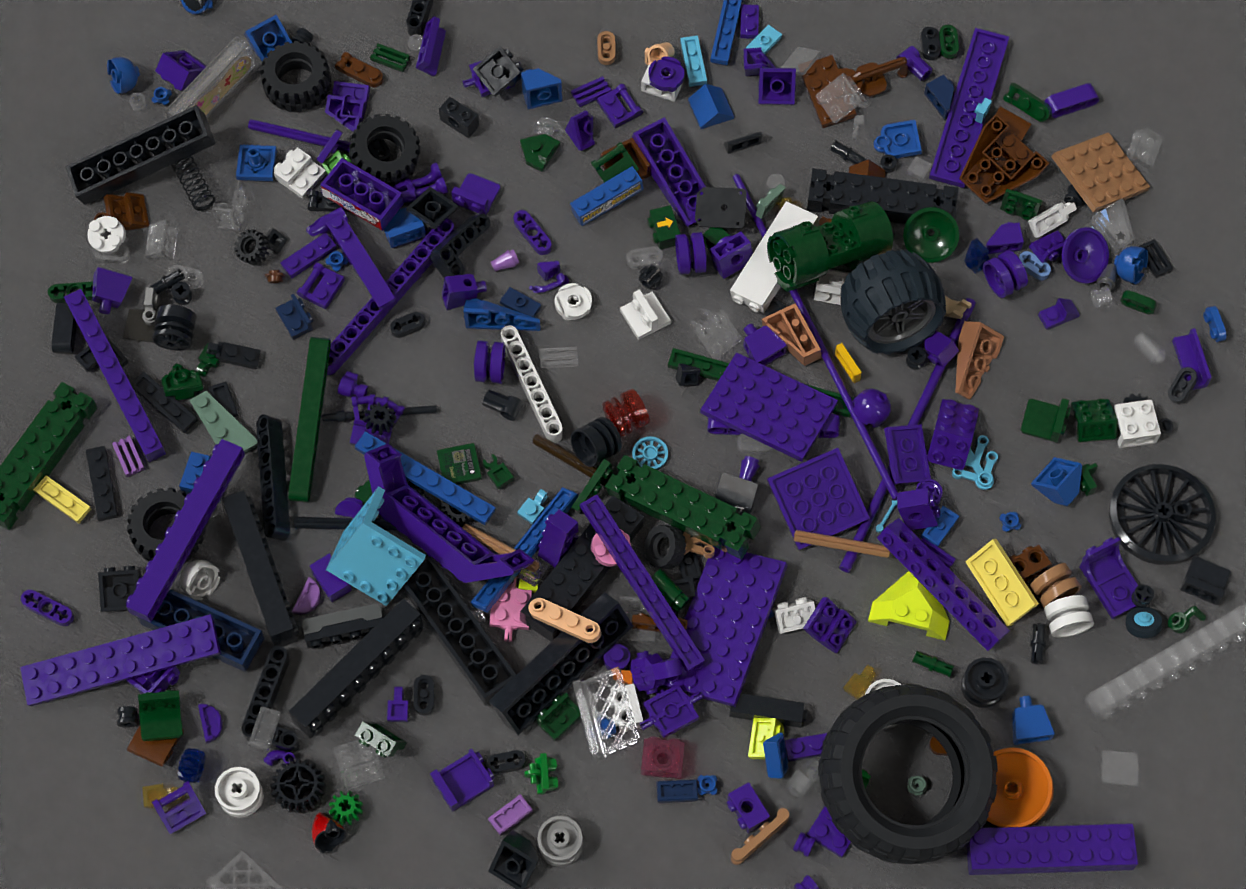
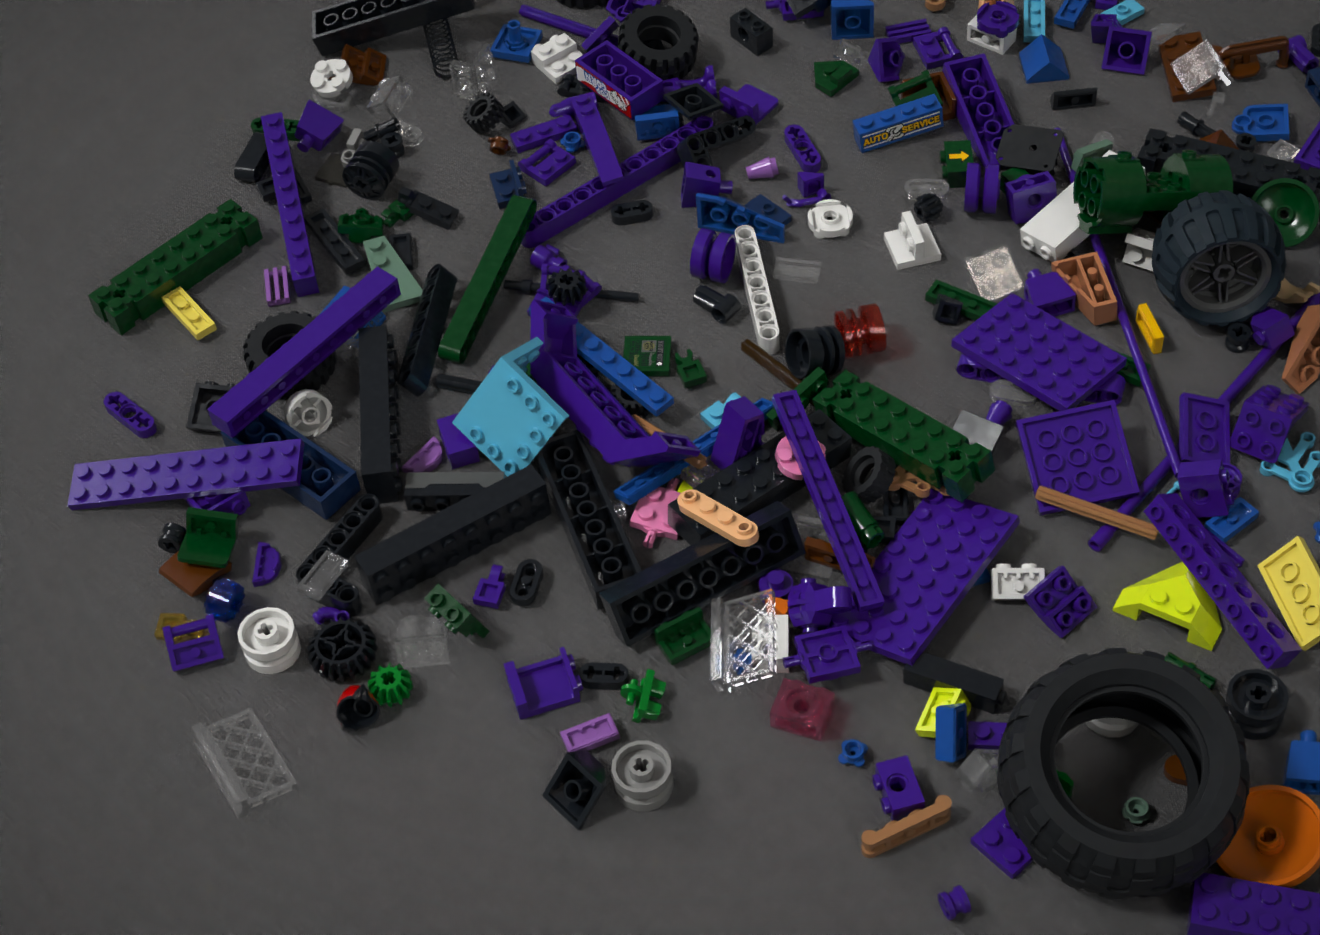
camera: 20 degrees right, 15 degrees down
(101, 483) = (238, 307): black plate -> none
(650, 452) = (881, 380): medium azure wheel -> none
(677, 791) = (811, 751): dark blue plate -> none
(804, 844) = (964, 848): dark purple wheel -> none
(872, 407) = (1170, 373): dark purple cylinder -> none

